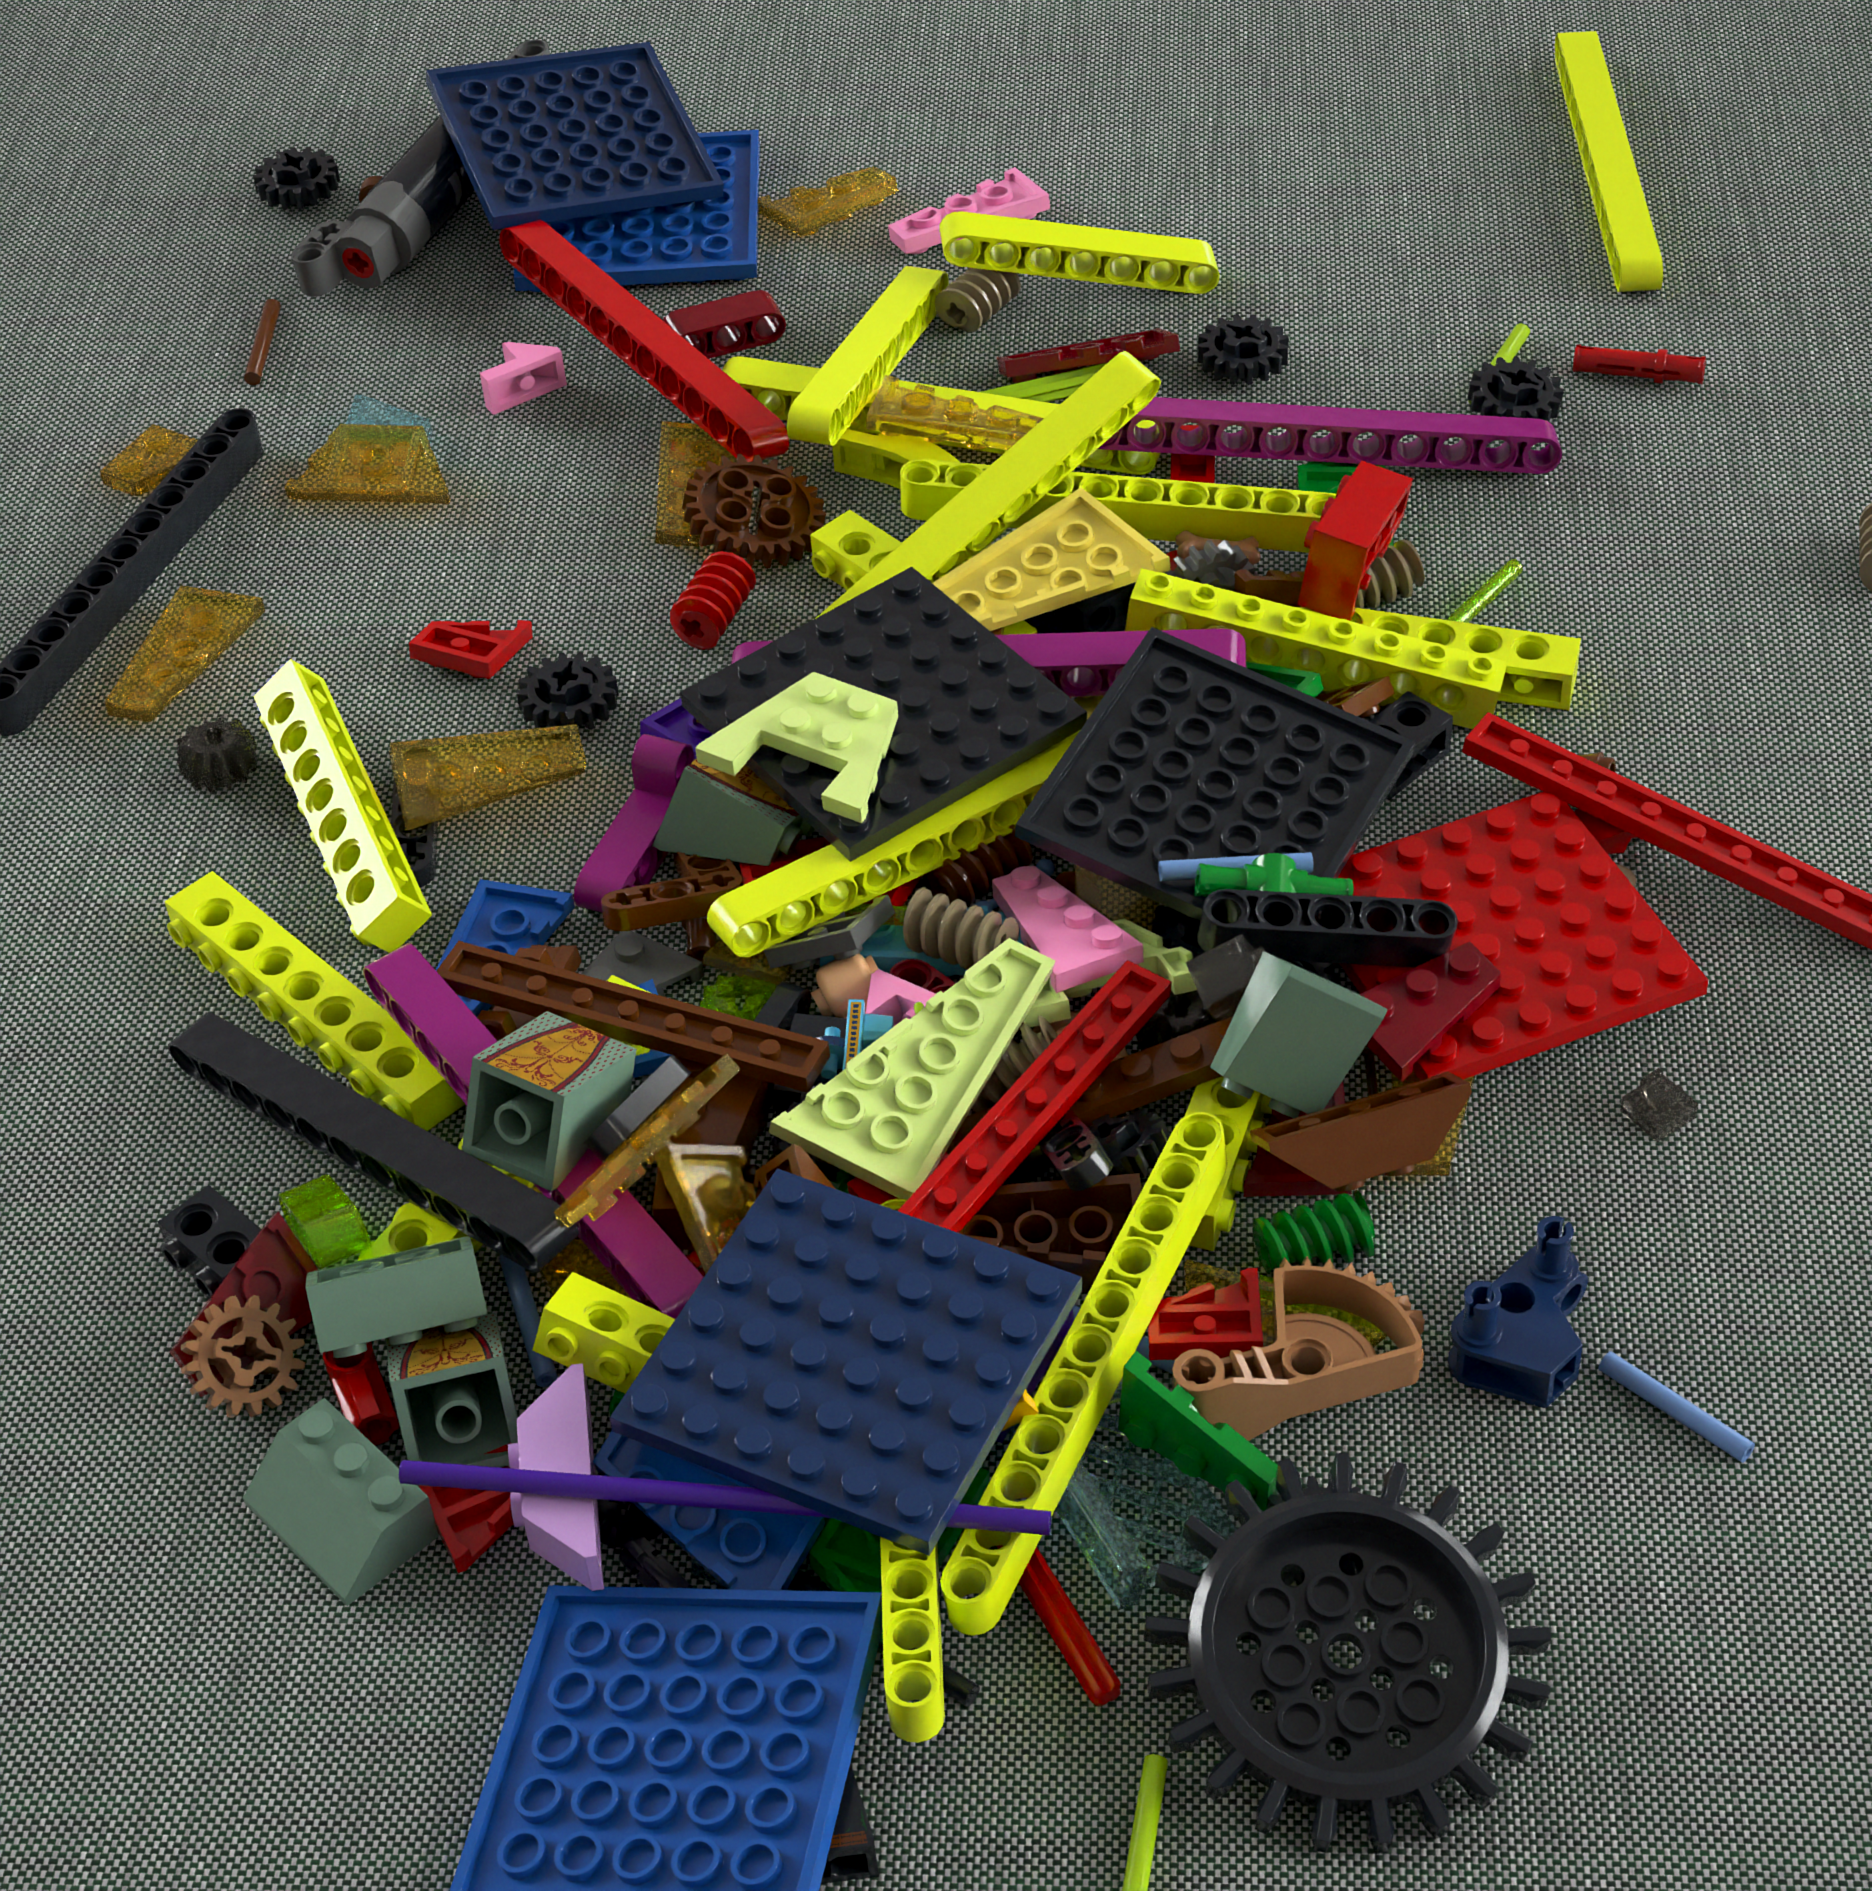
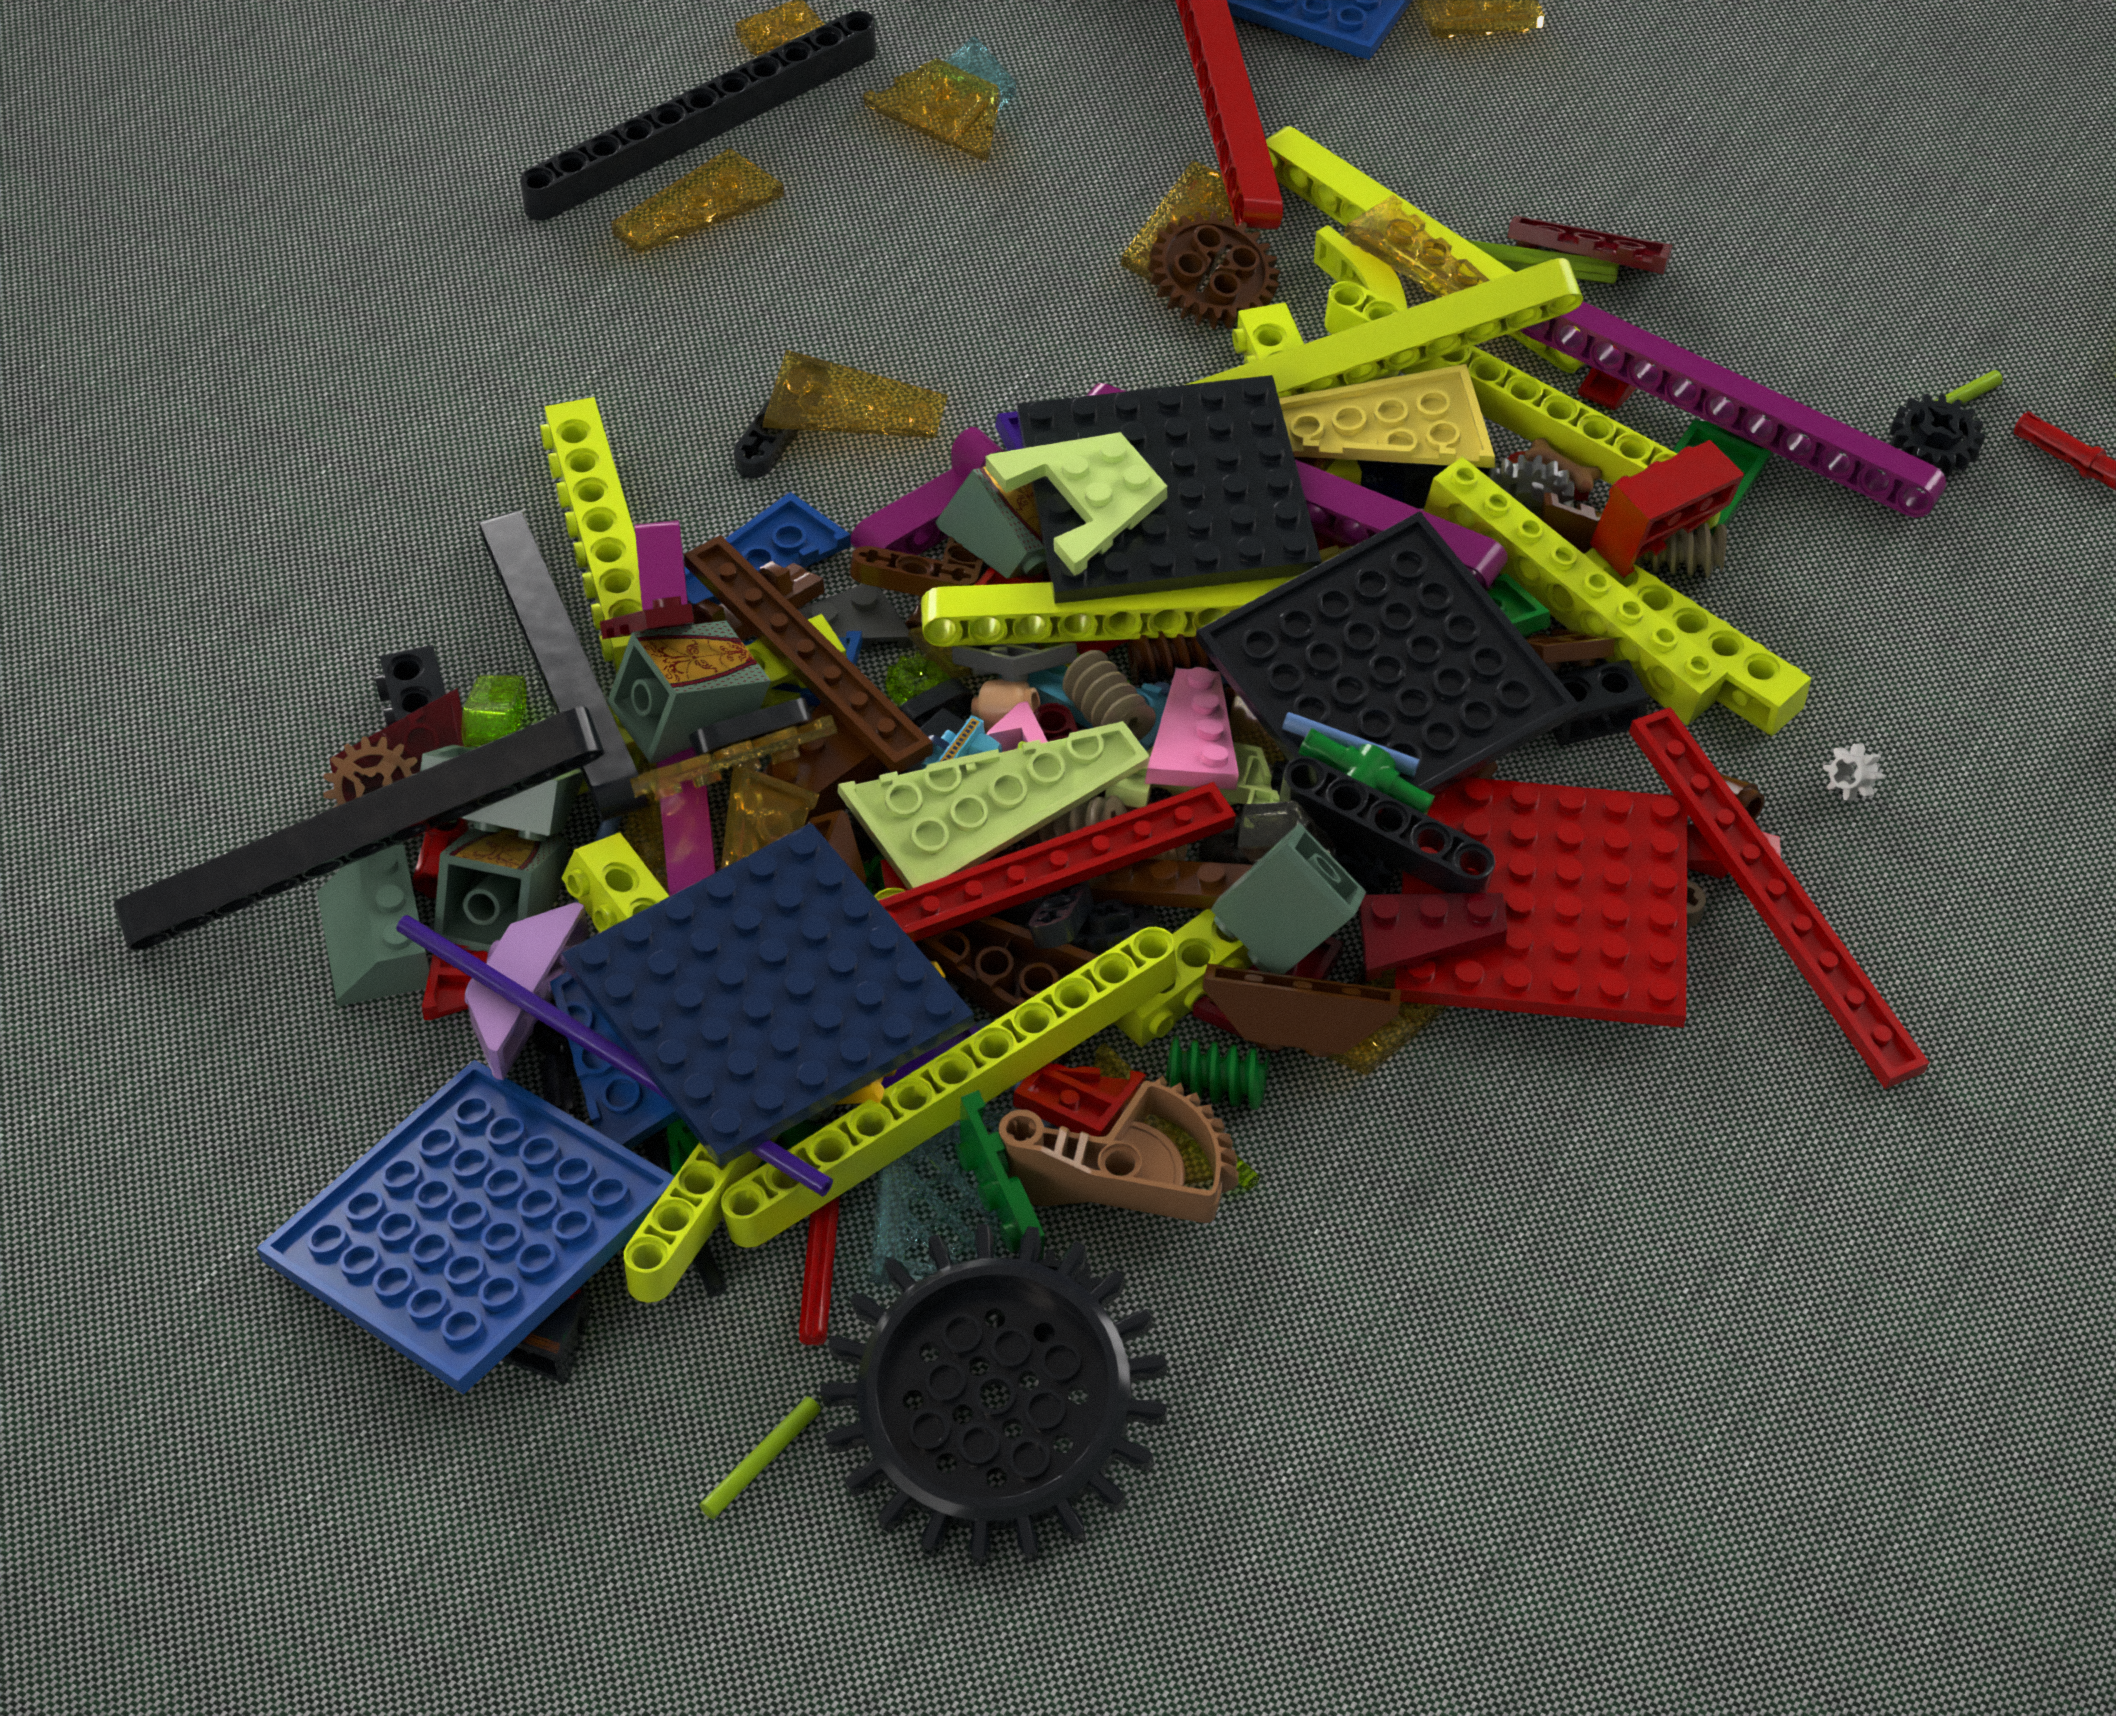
camera: 25 degrees right, 5 degrees up
(216, 754) = (666, 302): clear smoke gear -> none
(270, 1406) = (358, 828): none -> black beam
(341, 808) = (725, 386): neon yellow brick -> none
(469, 646) = (916, 293): red wing -> none
(474, 1037) = (665, 614): none -> dark red wing
(525, 375) = (1119, 74): bright pink slope -> none
(567, 692) = (962, 365): black gear -> none
(712, 599) = (1126, 333): red piece -> none
(729, 323) = (1307, 94): dark red beam -> none
(865, 357) = (1393, 169): neon yellow beam -> none
(976, 297) = (1538, 149): dark tan piece -> none
(1011, 197) = (1585, 72): bright pink wing -> none
(1062, 242) = (1642, 148): neon yellow beam -> none
(1243, 349) = (1726, 294): black gear -> none
(1487, 592) = (1773, 604): clear neon green piece -> none
(1516, 1329) = (1313, 1220): dark blue piece -> none
(1659, 1106) = (1579, 1100): clear smoke tile -> none
(1676, 1406) = (1404, 1343): medium blue piece -> none
(1687, 703) = (1865, 774): none -> white gear

